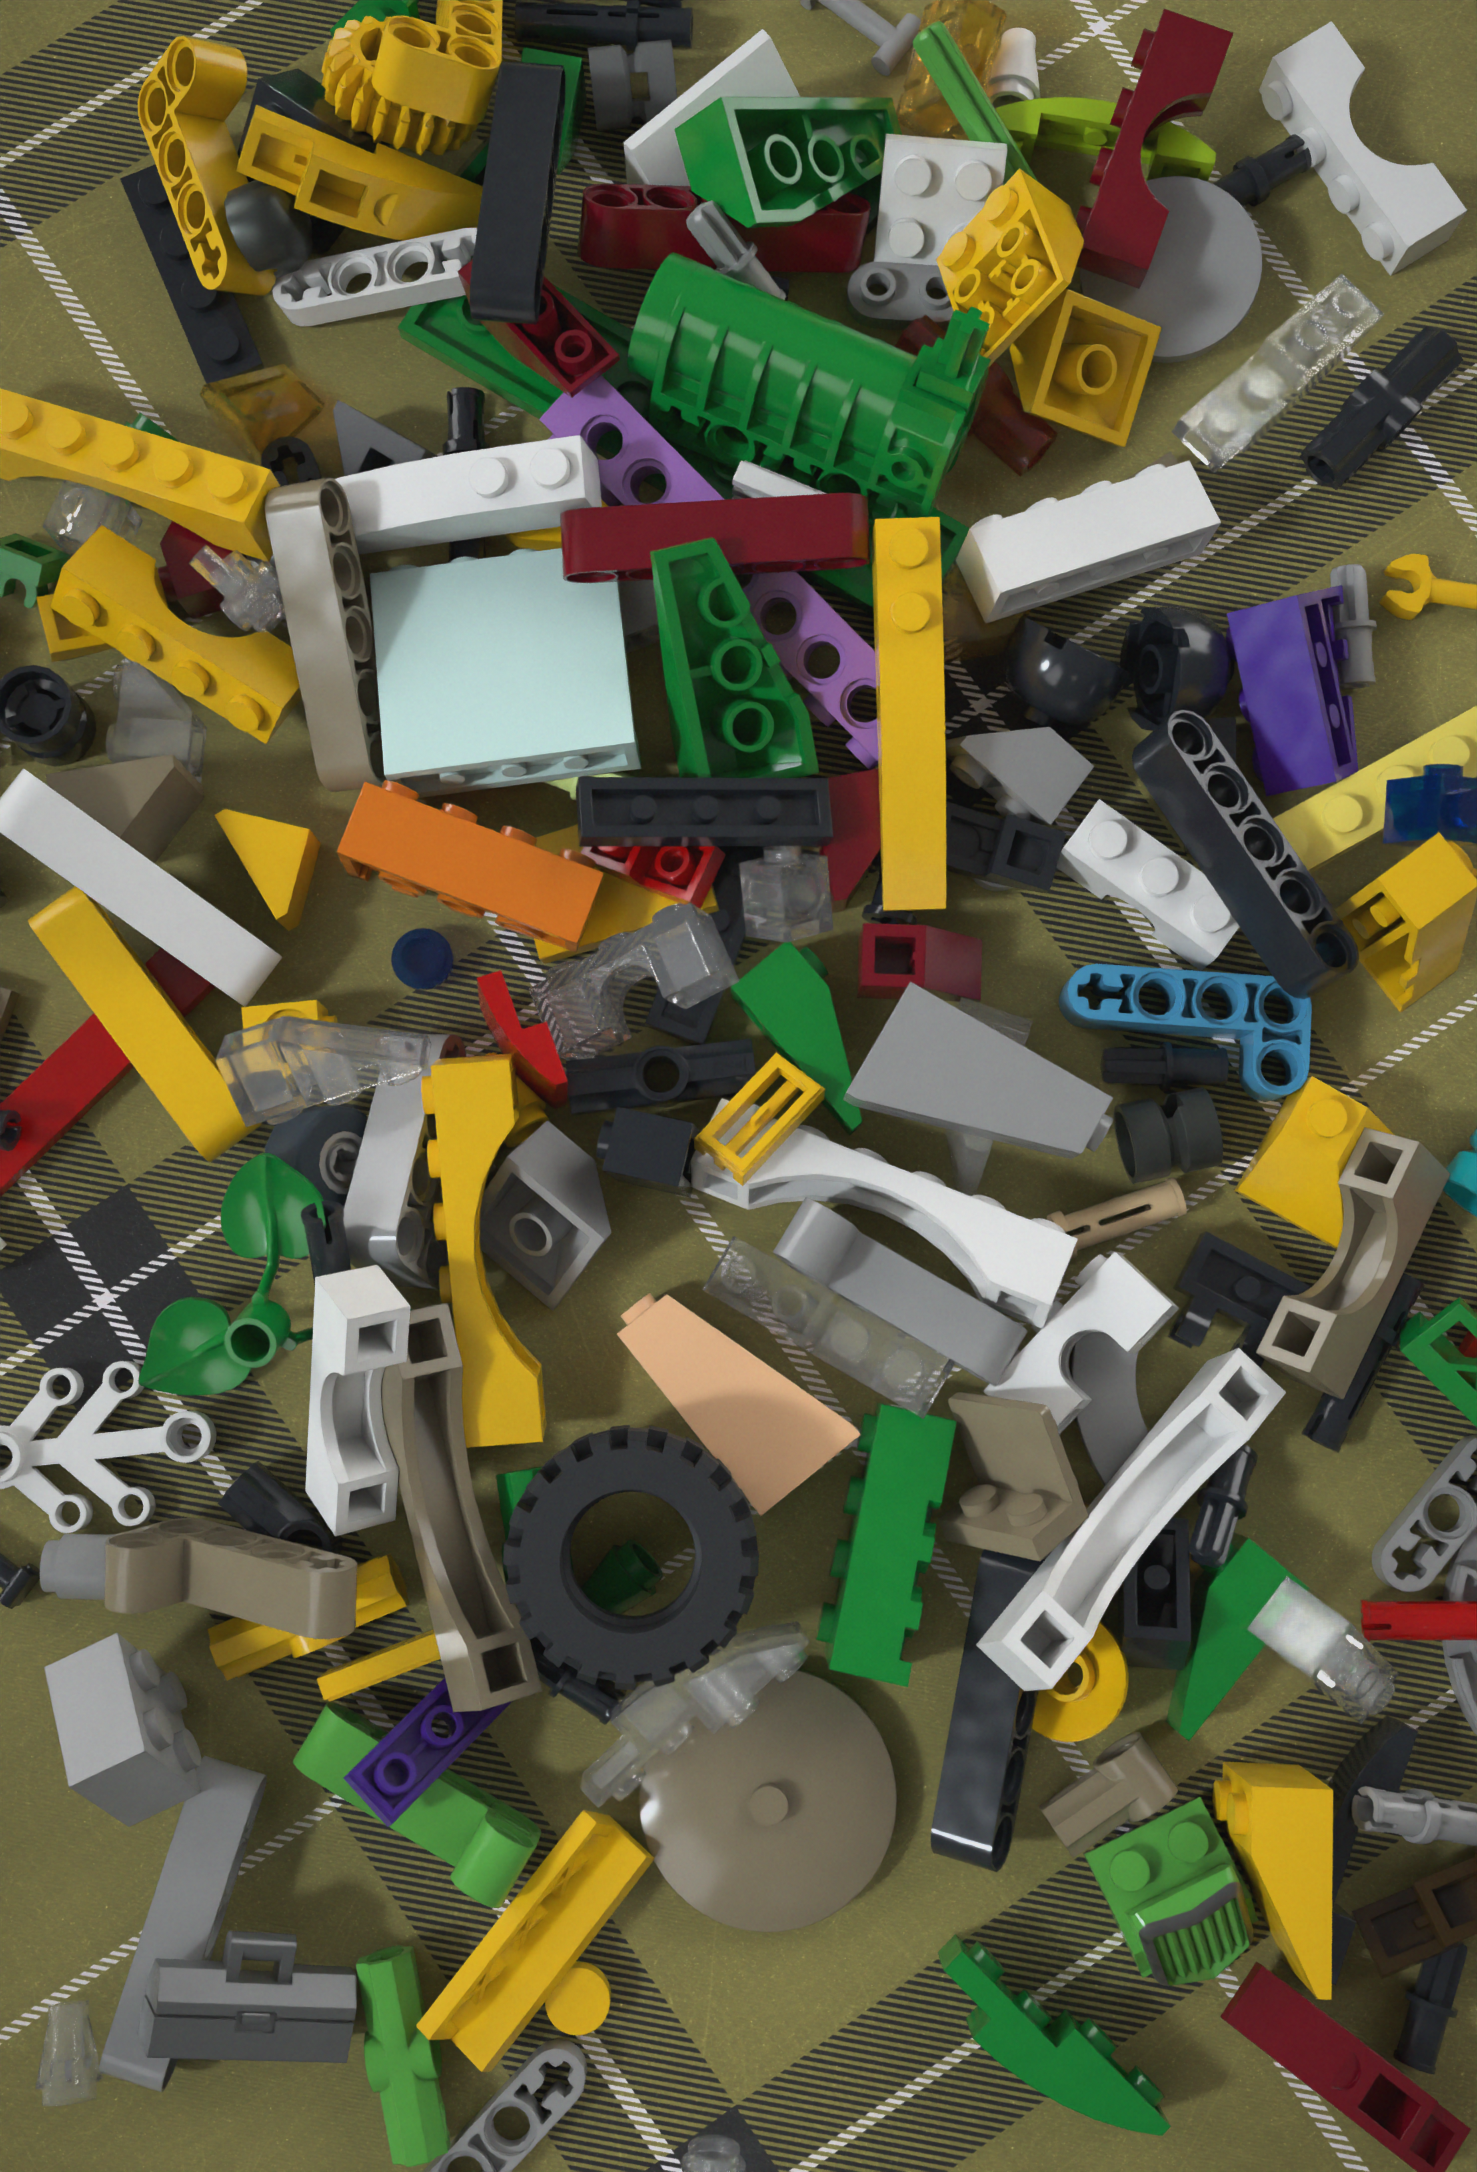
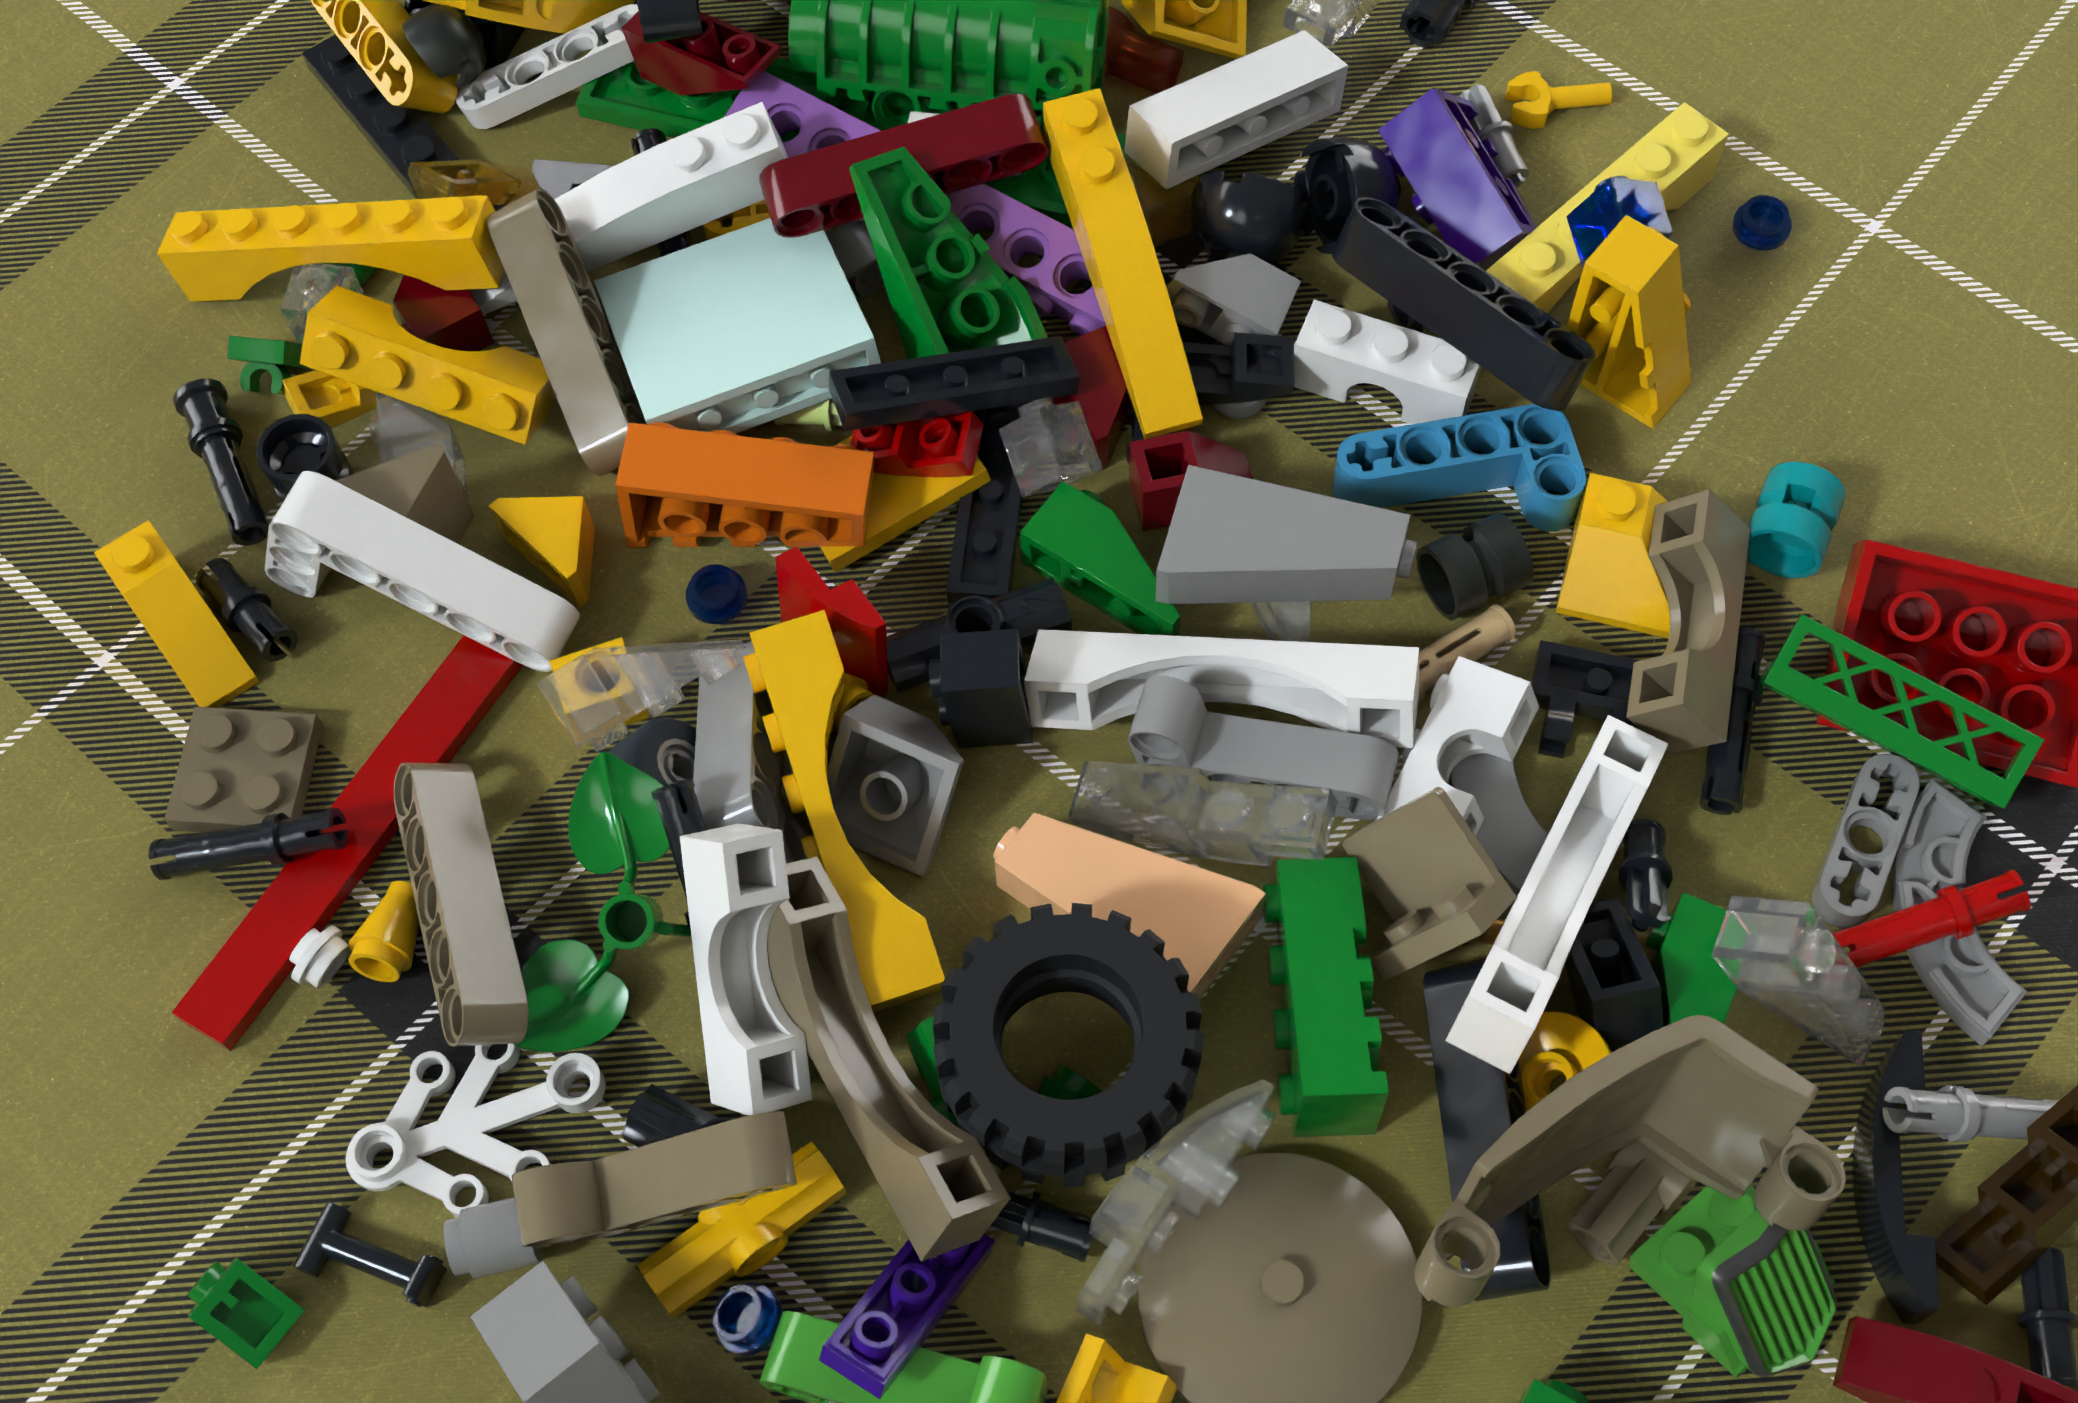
camera: 10 degrees left, 20 degrees down
(44, 1241) = (388, 936): none -> yellow cone
(111, 1237) = (460, 905): none -> dark tan beam
(141, 1020) = (458, 701): yellow beam -> none
(248, 588) = (487, 308): clear piece -> none
(294, 1698) = (746, 1318): none -> clear blue plate
(379, 1666) = (836, 1253): yellow tile -> none
(587, 996) = (951, 513): clear arch -> none
(727, 1156) = (1090, 633): yellow tile -> none
(1164, 1066) = (1455, 513): black axle -> none
(1179, 1777) = (1682, 1092): none -> dark tan panel
(1284, 1844) = (1866, 1228): yellow slope -> none

